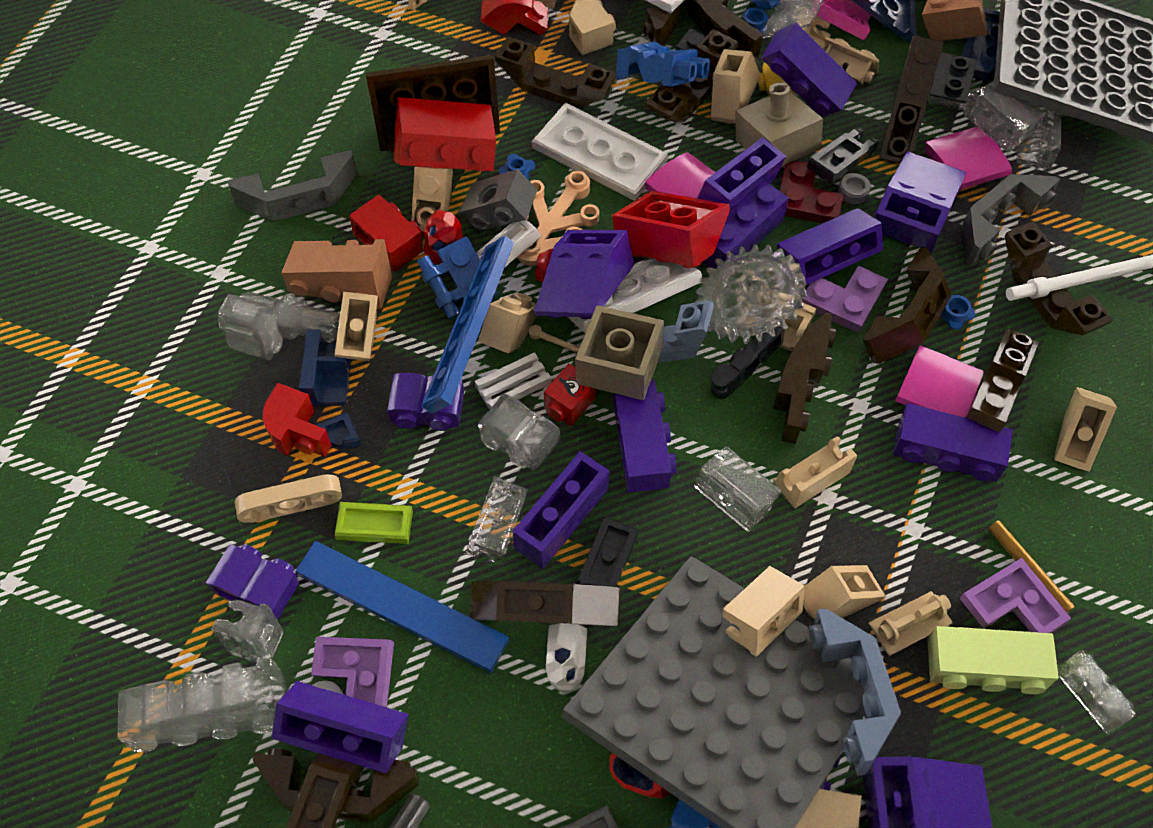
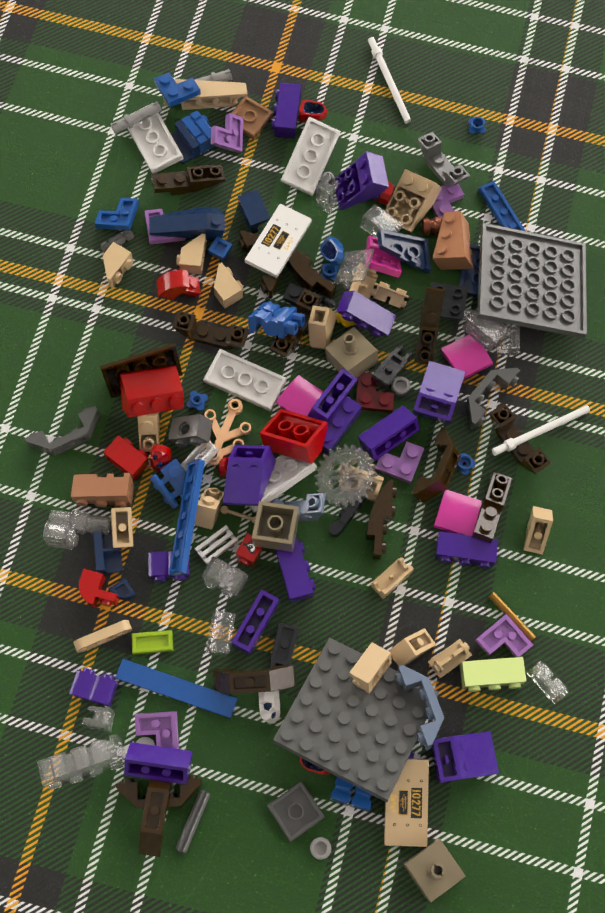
camera: 10 degrees left, 10 degrees up
(736, 488) = (350, 594): clear hinge -> none

